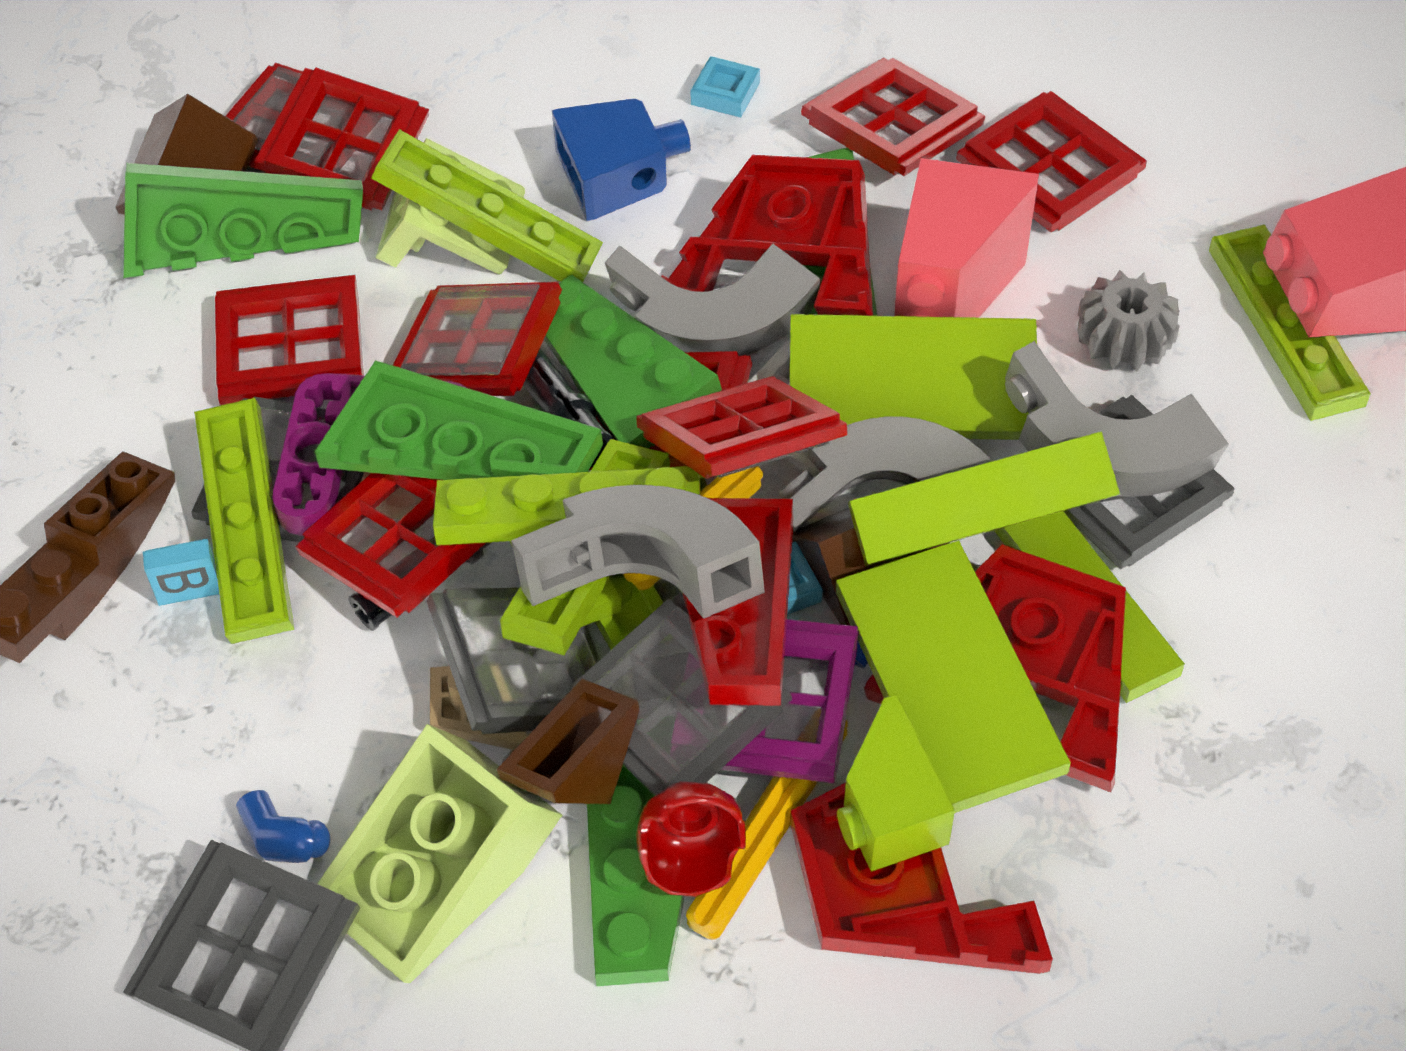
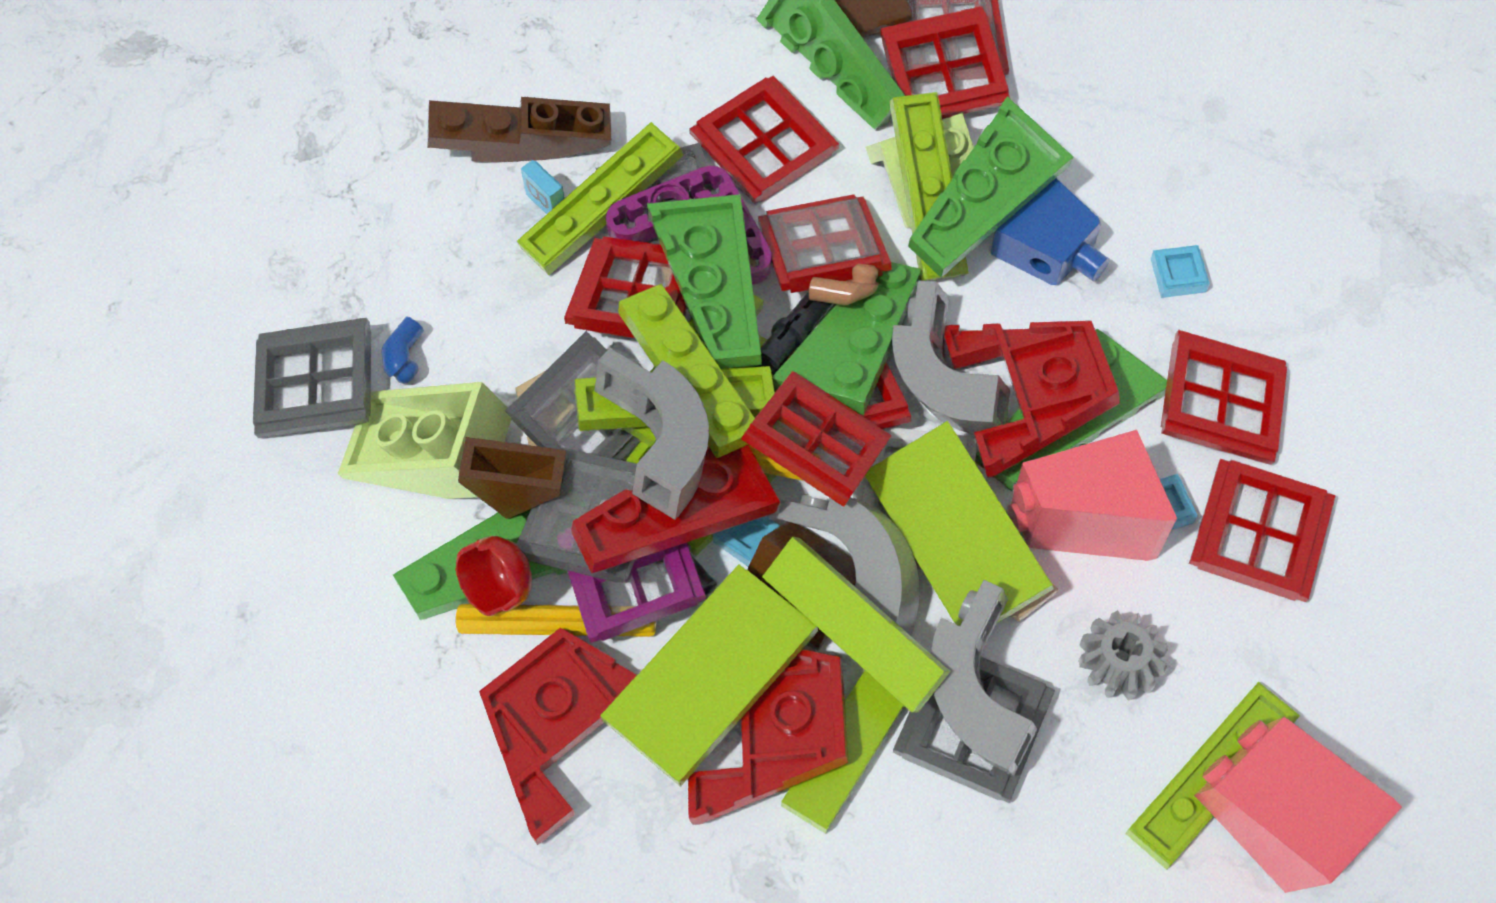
camera: 60 degrees right, 10 degrees up
(537, 157) = (995, 181): none -> bright green wing
(564, 333) = (848, 291): none -> nougat arm
(894, 794) = (591, 676): lime slope -> none

